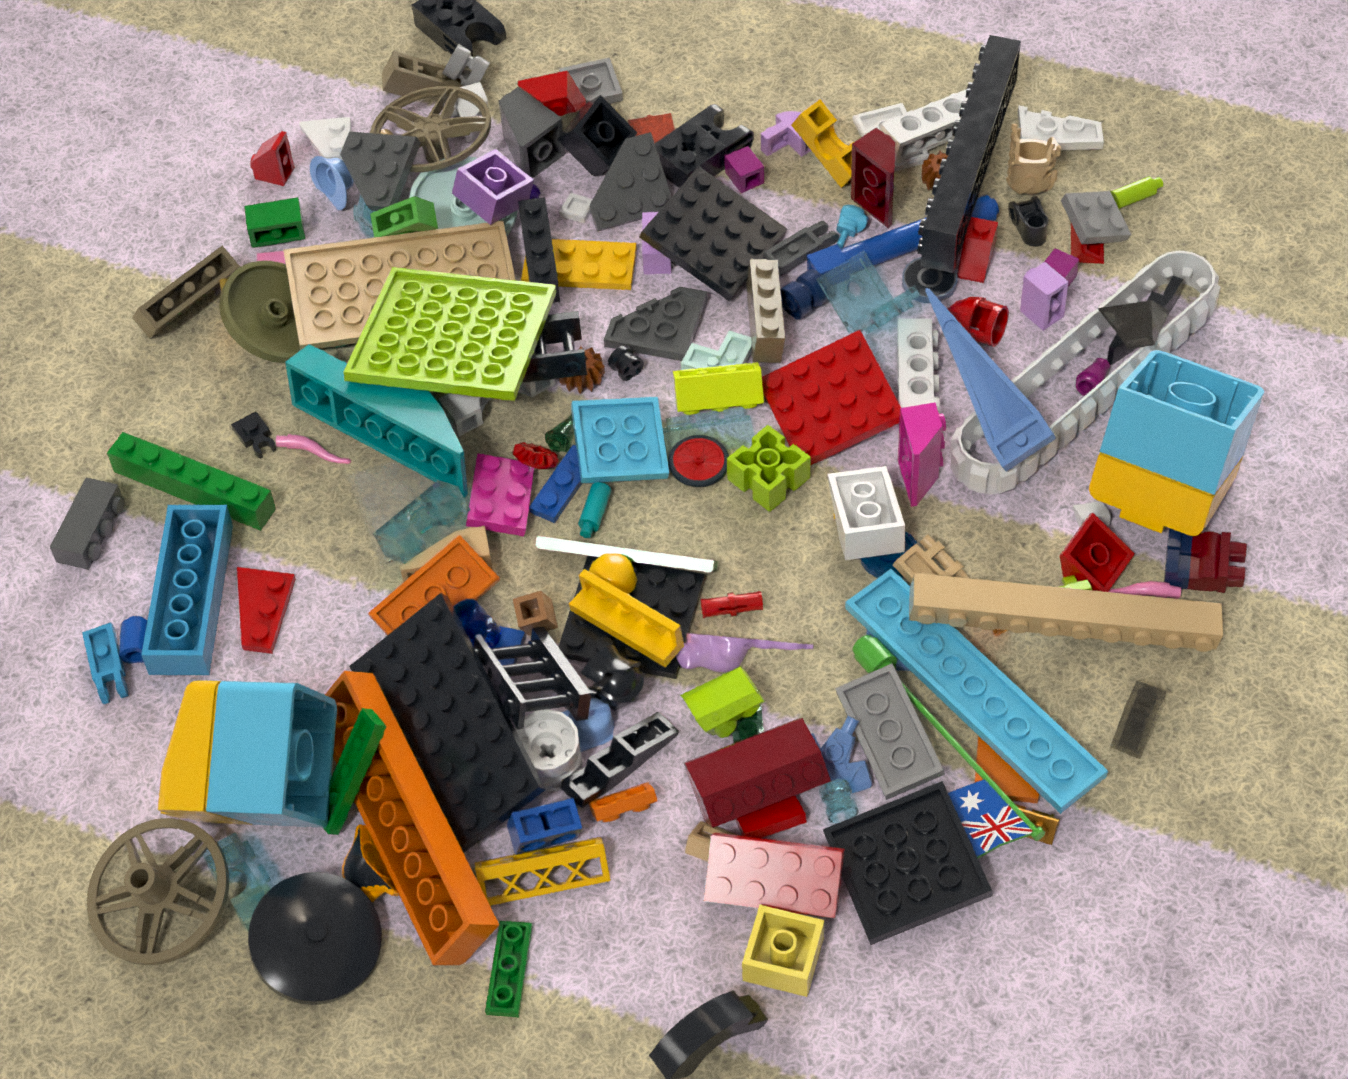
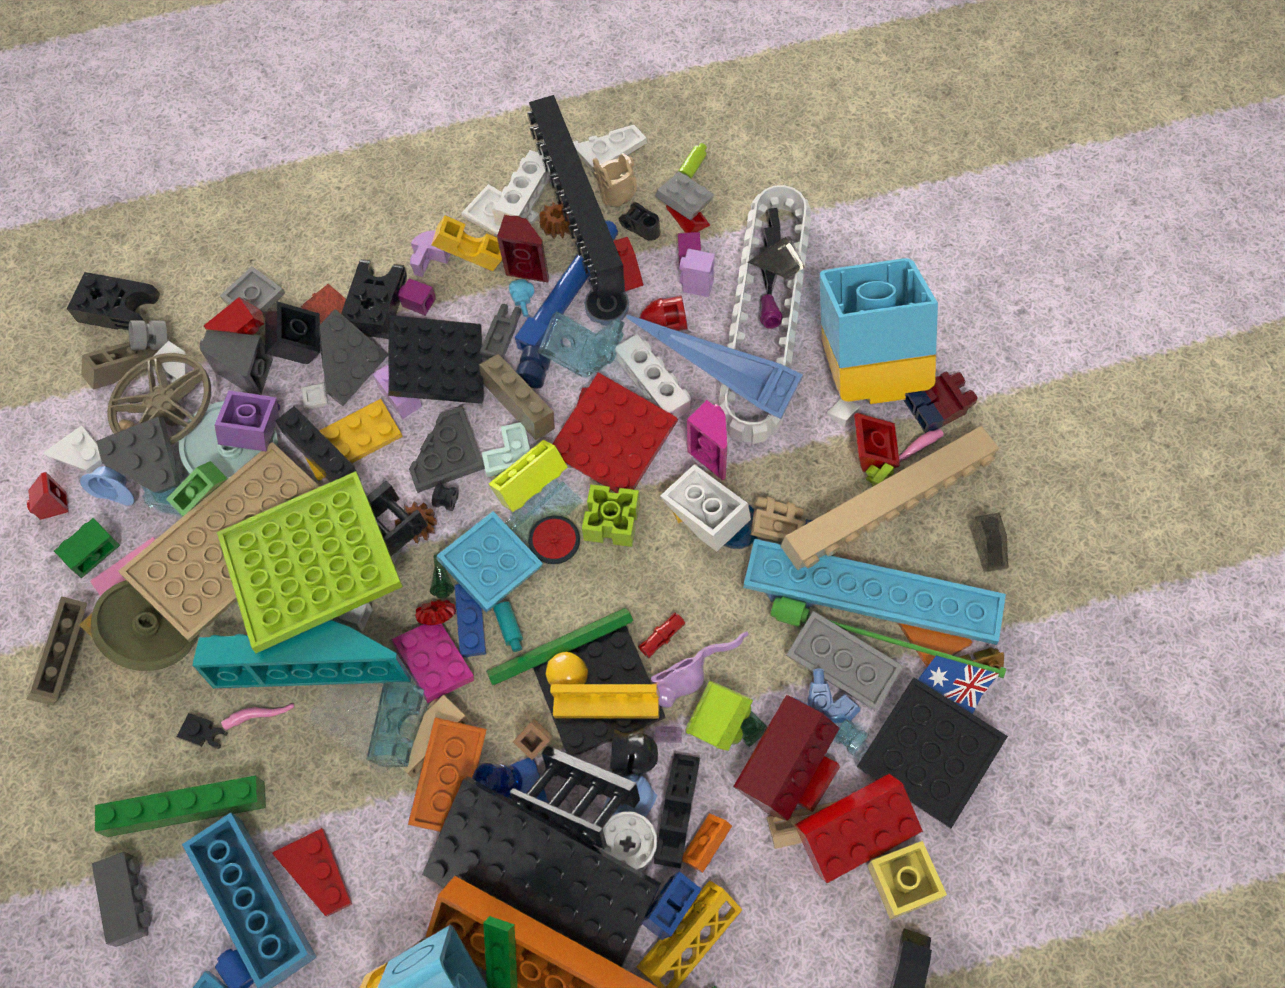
camera: 35 degrees left, 10 degrees up
(664, 690) = (668, 734): none -> clear purple tile

